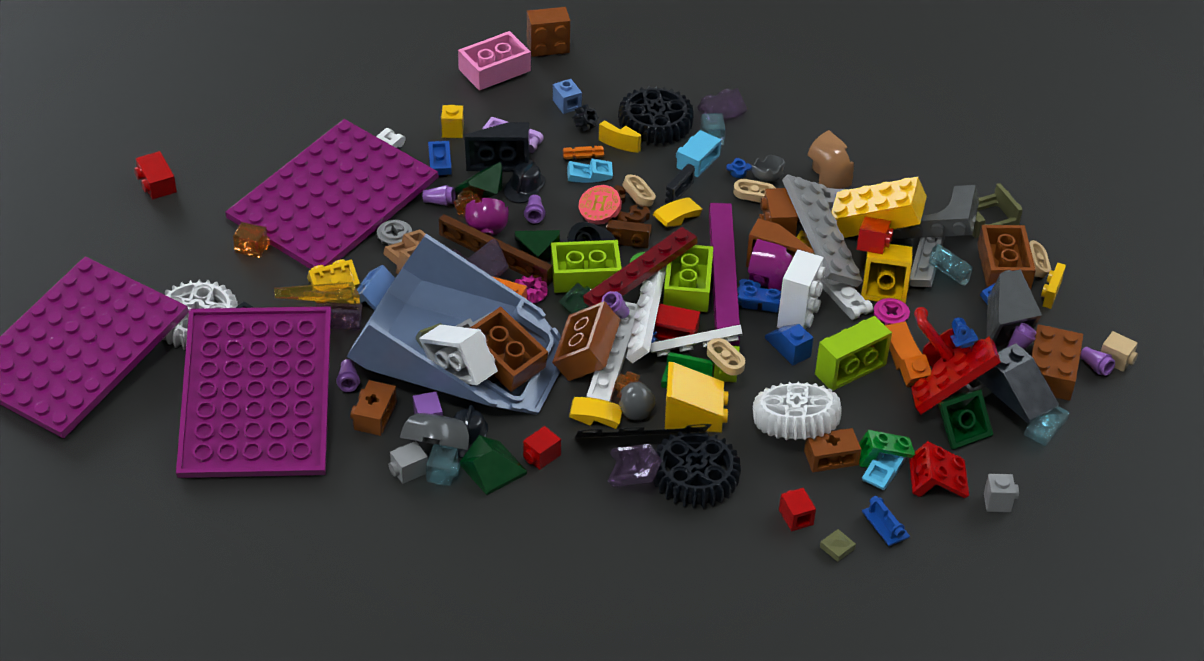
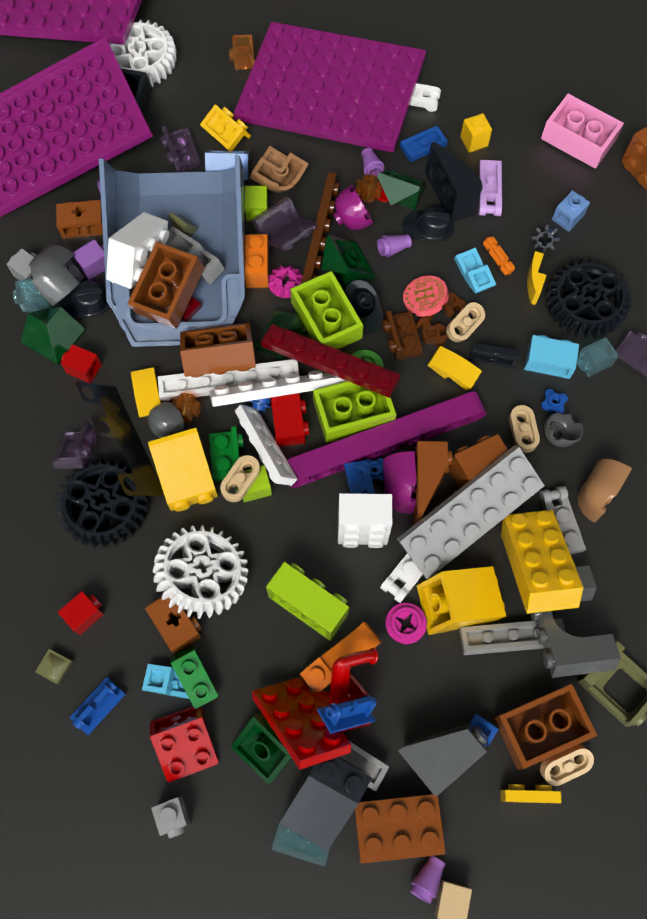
camera: 70 degrees right, 25 degrees up
(321, 293) = (196, 132): clear yellow wing -> none
(385, 230) = (308, 142): light grey gear -> none
(616, 303) = (268, 354): medium lavender cone -> none
(791, 342) = (312, 534): blue slope -> none
(874, 235) = (487, 569): red piece -> none
(950, 264) = (504, 666): clear light blue plate -> none
(1023, 335) = (405, 780): medium lavender cone -> none

